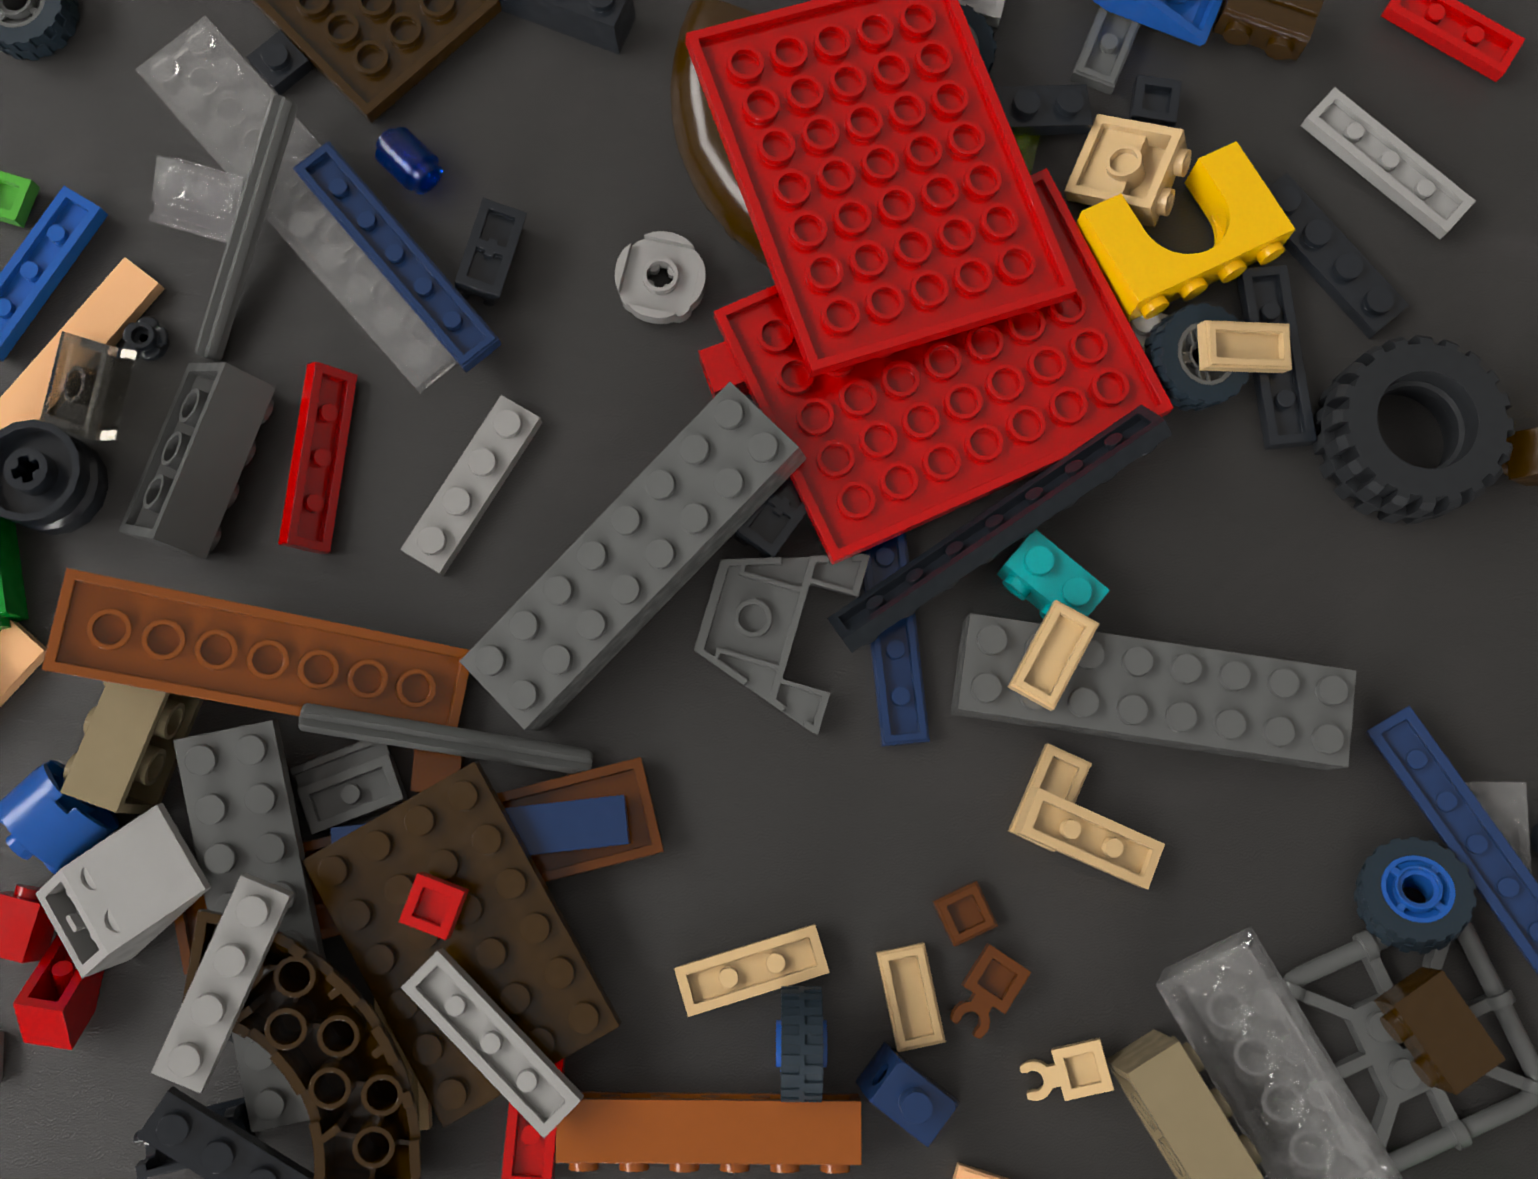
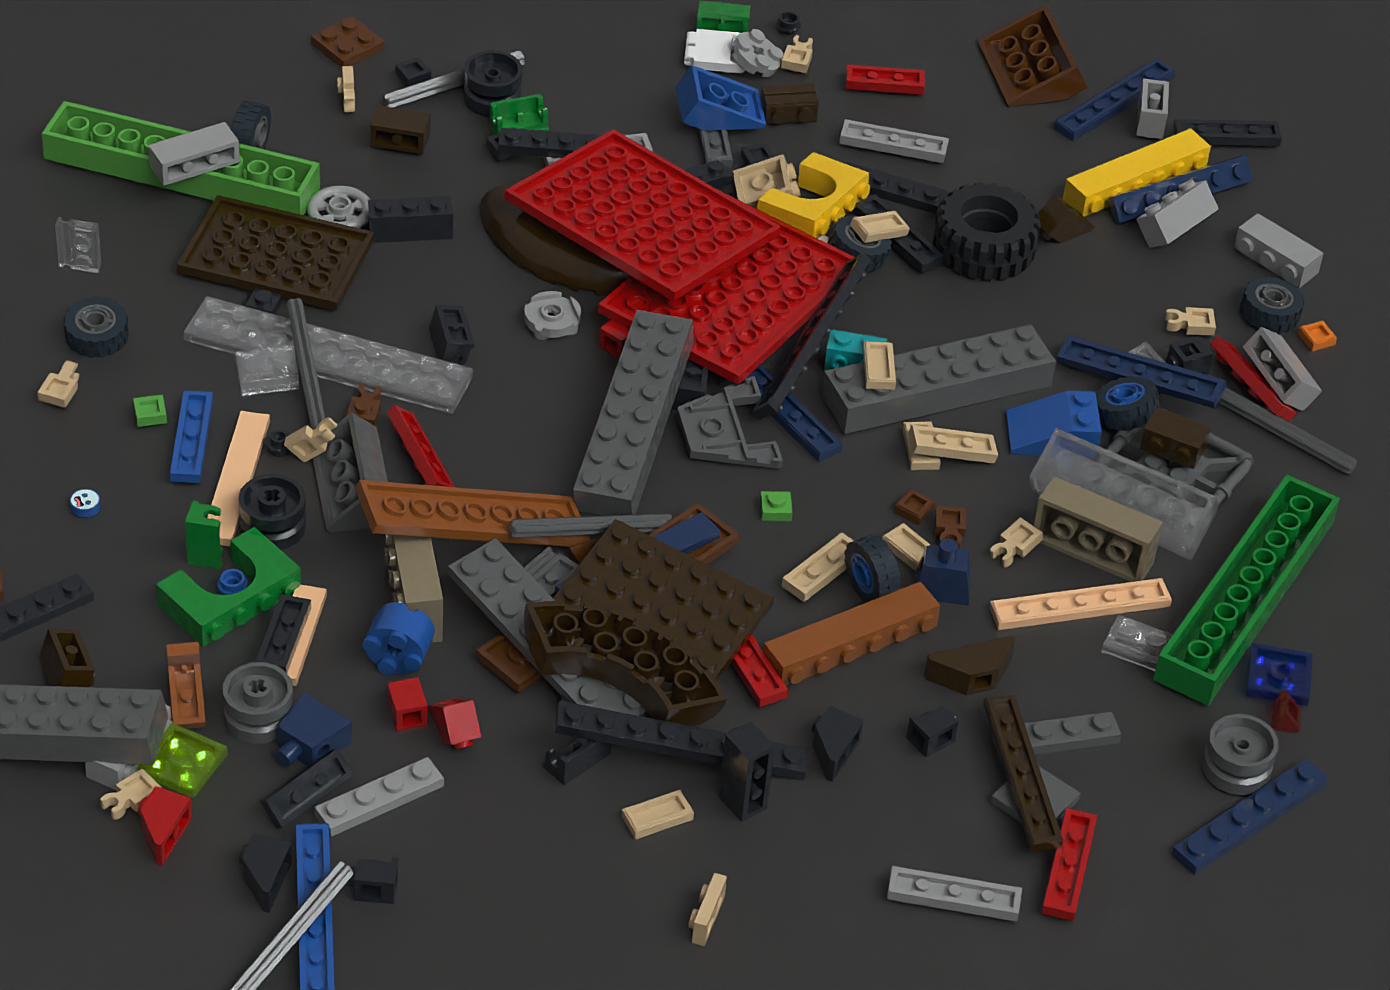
camera: 35 degrees left, 35 degrees down
(88, 387) = (269, 454): clear smoke slope -> none
(123, 892) = (464, 649): light grey slope -> none
(168, 369) = (308, 442): none -> tan plate
(222, 982) = (562, 626): light grey plate -> none
(299, 332) = (366, 405): none -> reddish brown plate
(397, 256) = (403, 350): dark blue tile -> none
(408, 160) = (374, 314): clear blue brick -> none
(433, 905) = (642, 573): red plate -> none
(472, 485) = (514, 437): light grey plate -> none
(493, 1042) = (715, 617): light grey plate -> none
(761, 808) = (776, 506): none -> bright green plate
(1275, 871) = (1034, 422): none -> blue slope

